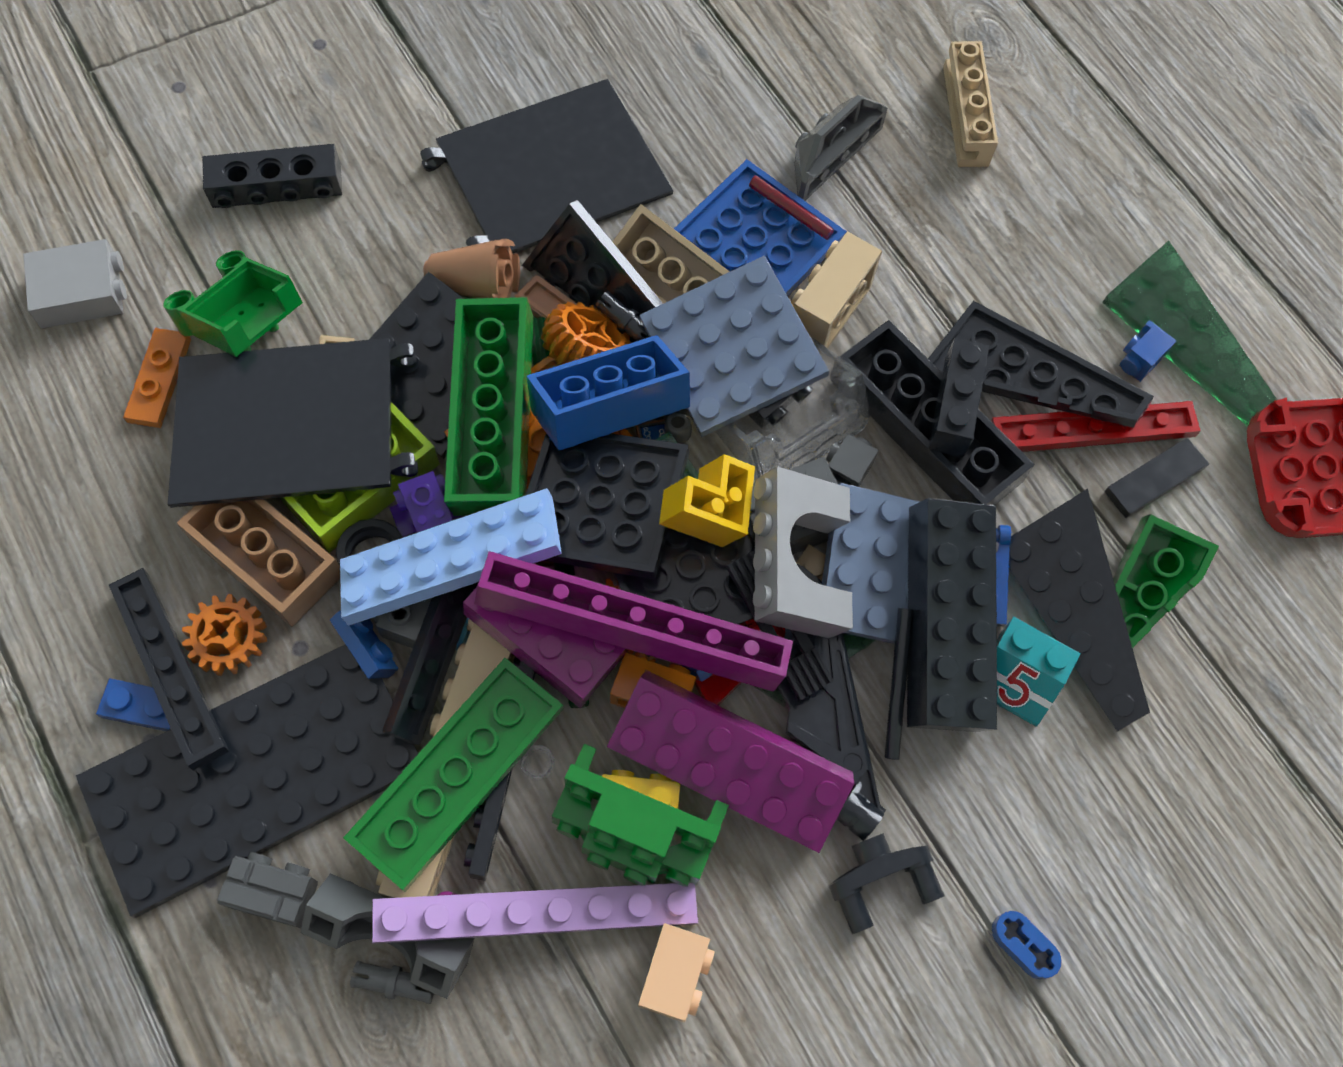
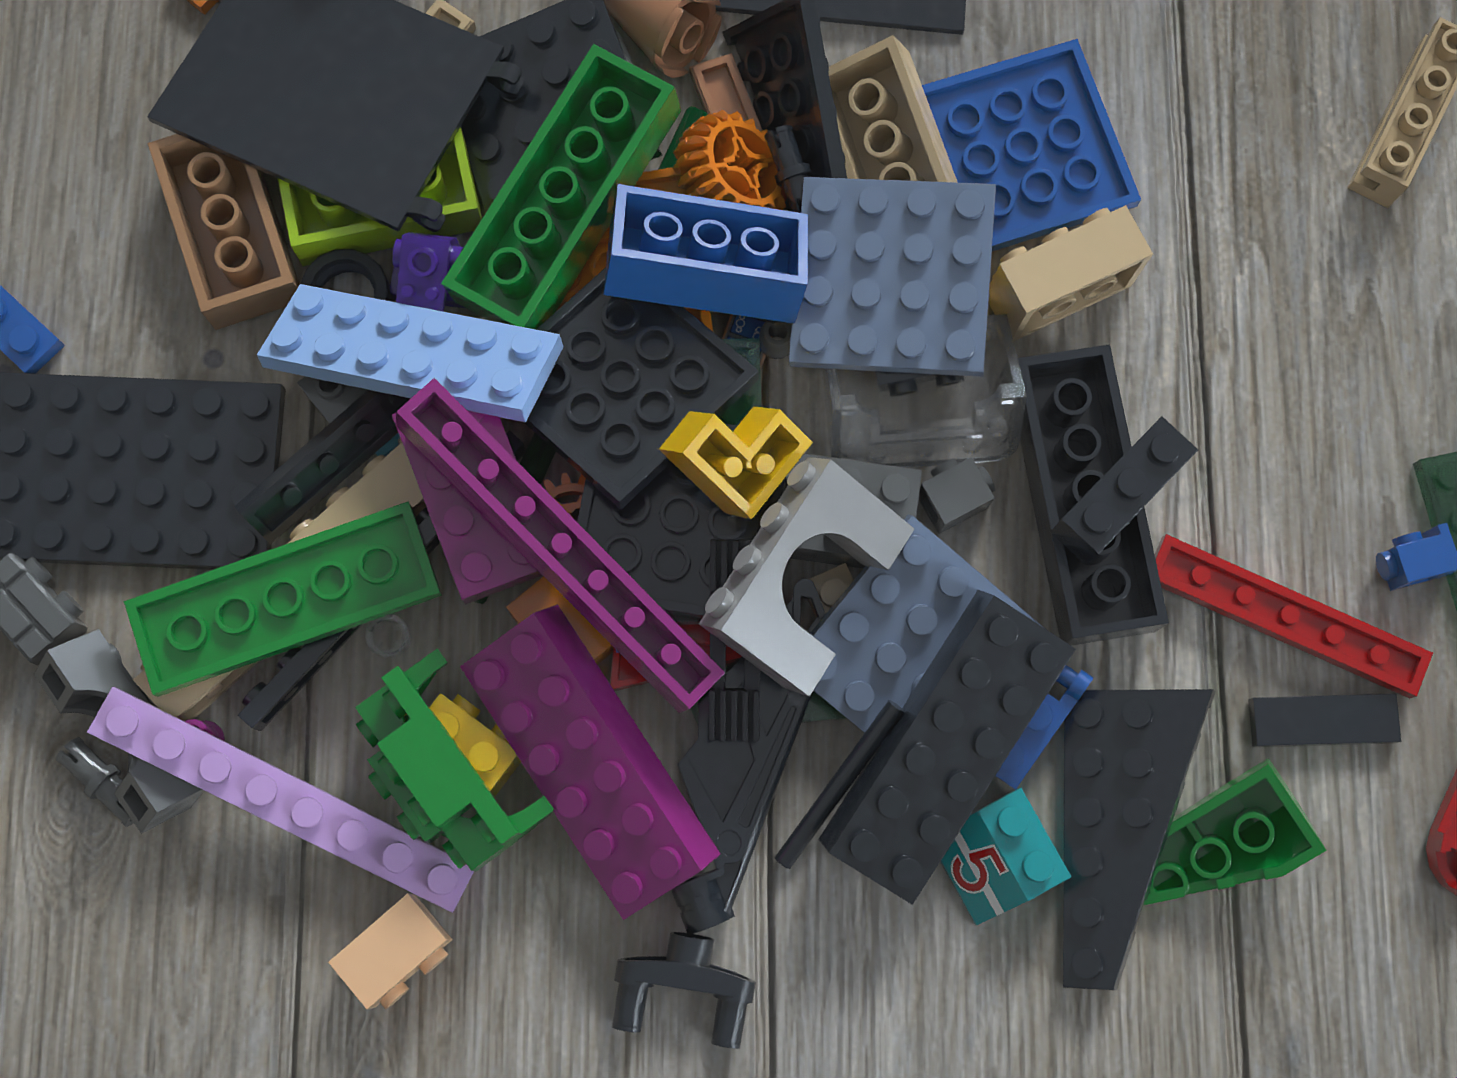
camera: 30 degrees right, 10 degrees up
(168, 670) = (55, 304): black plate -> none
(209, 645) = (131, 295): orange gear -> none
(365, 646) = (277, 405): blue plate -> none
(791, 207) = (1089, 133): dark red bar -> none
(835, 141) = (1204, 73): dark grey wedge -> none
(1041, 372) = (1260, 507): black wing -> none

